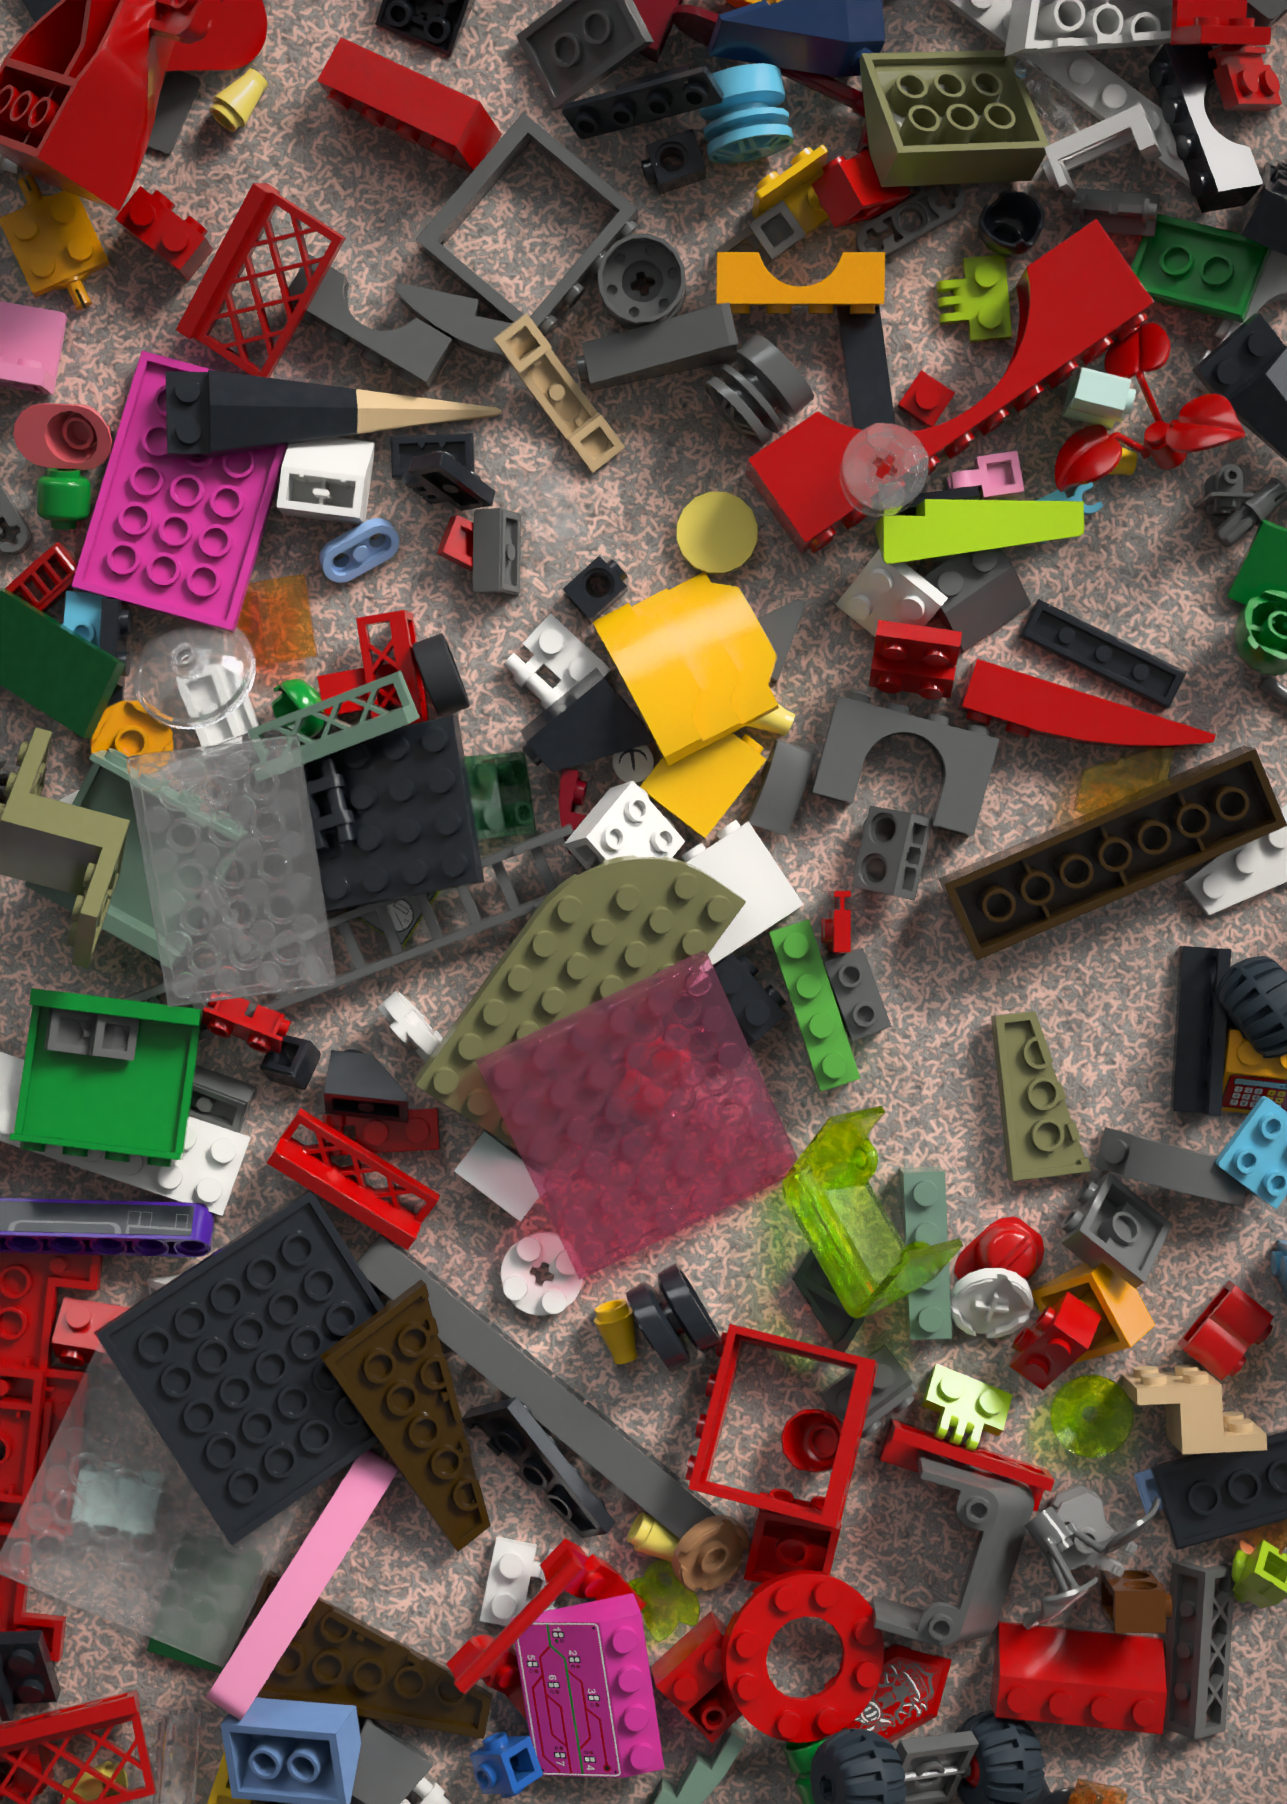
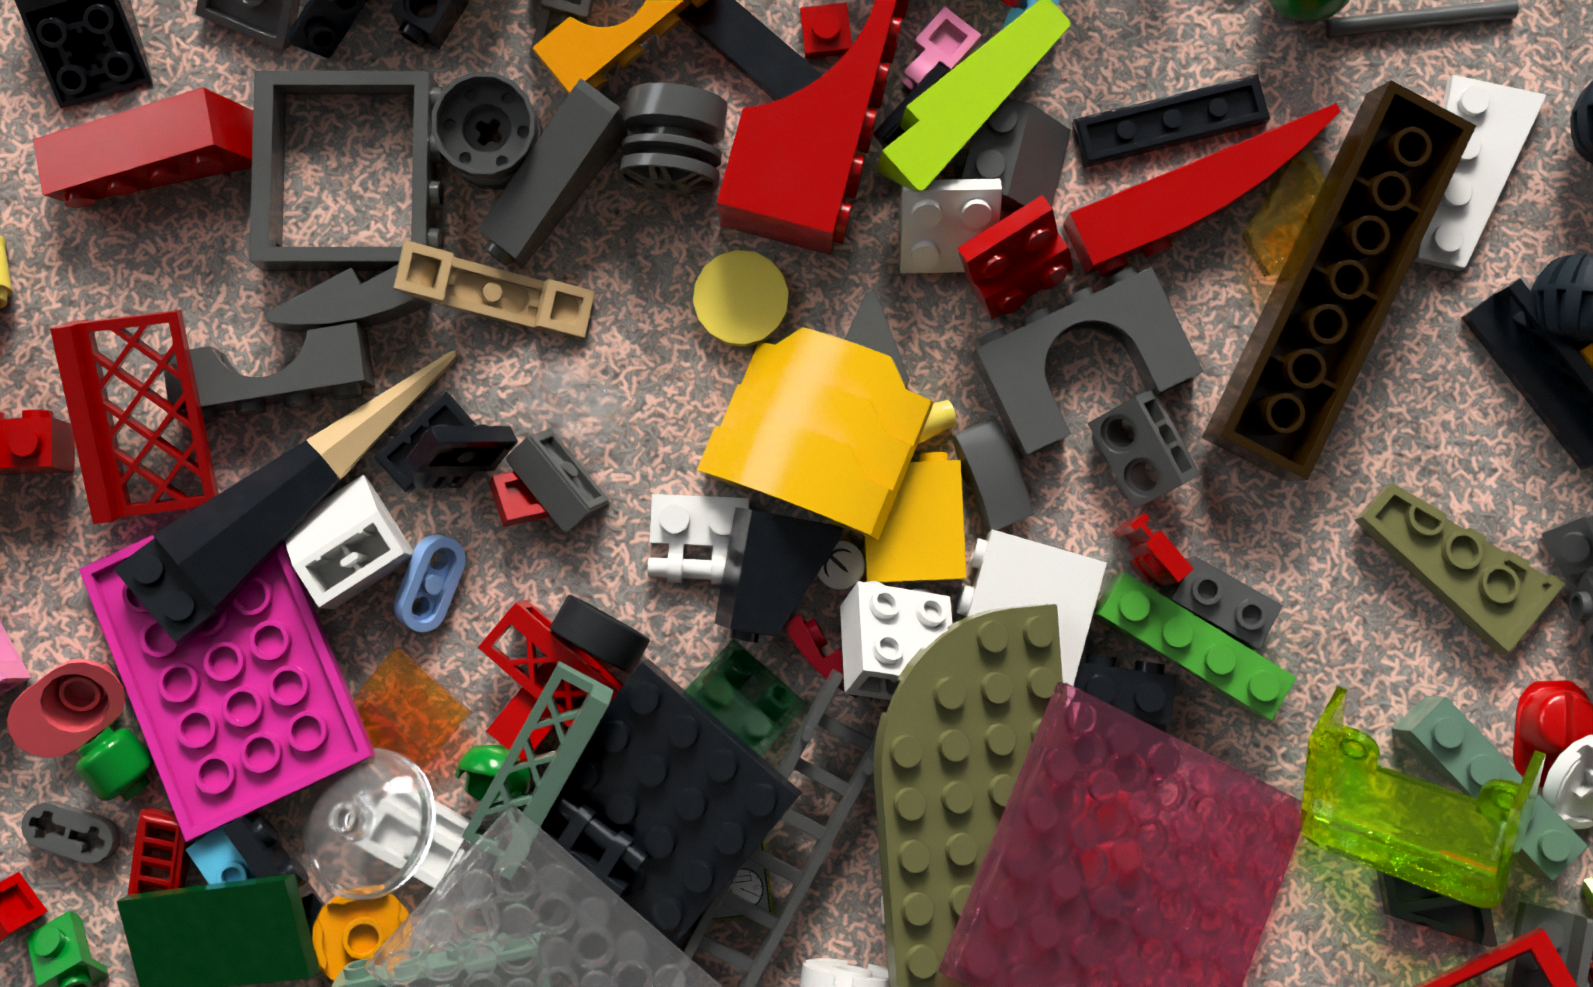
camera: 45 degrees left, 5 degrees down
(591, 606) = (681, 457): black brick -> none
(876, 446) = (853, 78): clear brick -> none

